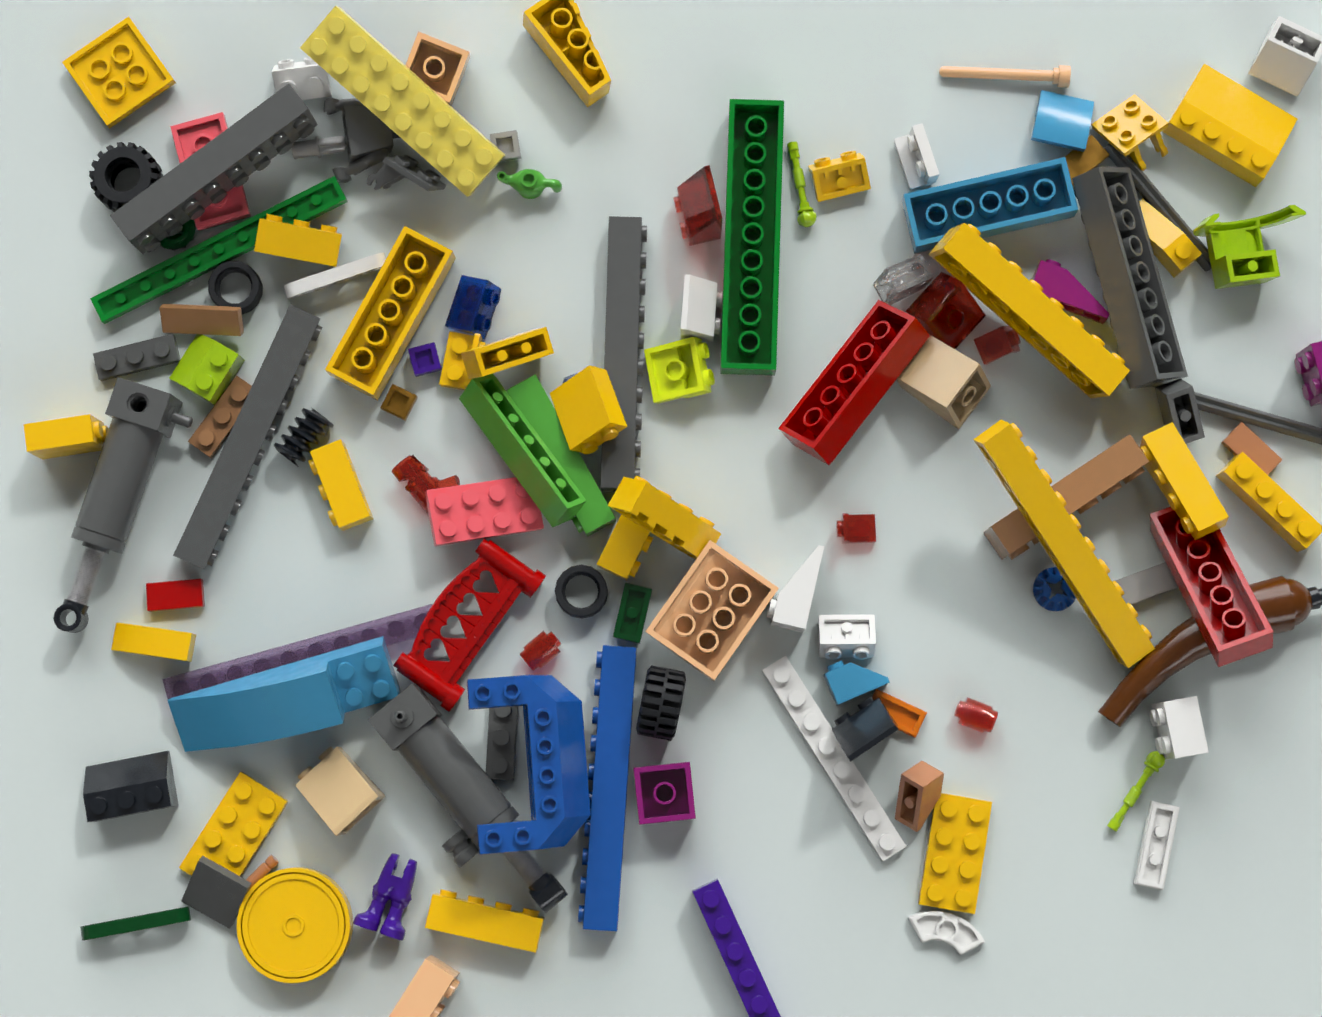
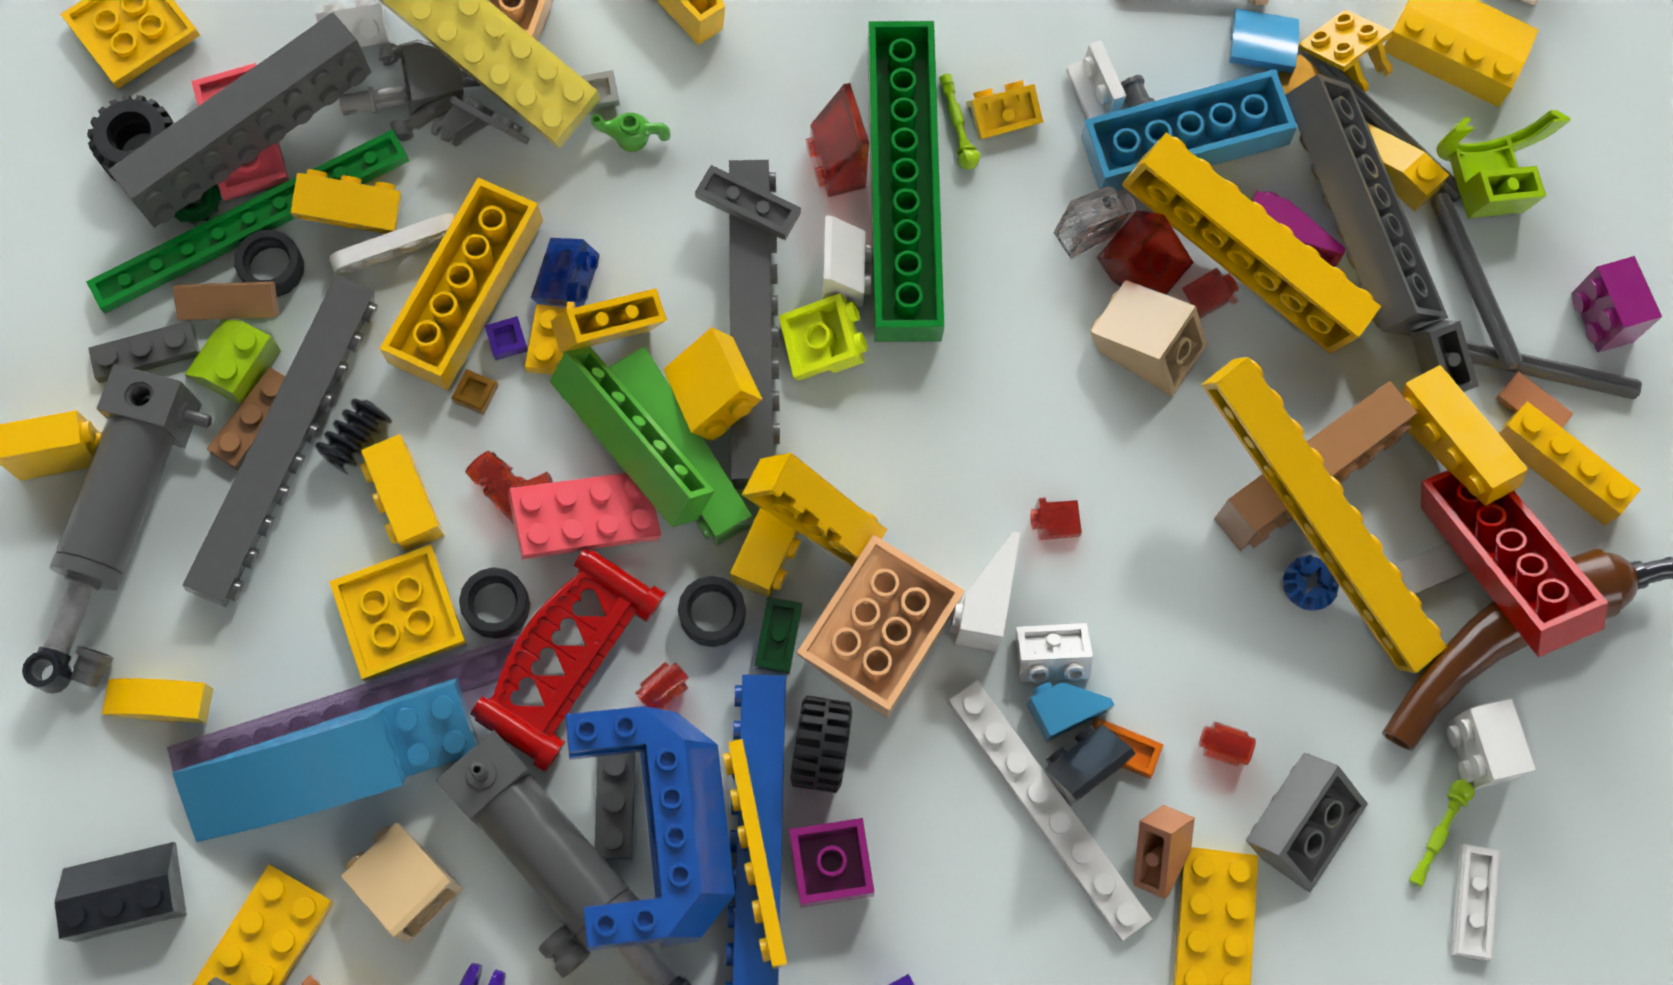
camera: 10 degrees left, 10 degrees down
(102, 612) = (90, 666): none -> dark grey piece
(175, 595) = (186, 640): red tile -> none
(337, 581) = (397, 612): none -> yellow plate
(401, 559) = (480, 580): none -> black tyre
(608, 797) = (756, 870): none -> yellow plate
(622, 256) = (748, 202): none -> dark grey plate
(854, 382) = (1041, 339): red brick -> none
(950, 168) = (1135, 91): none -> dark grey bush
(1032, 777) = (1307, 820): none -> dark grey slope
(1216, 343) = (1476, 282): none -> dark grey axle

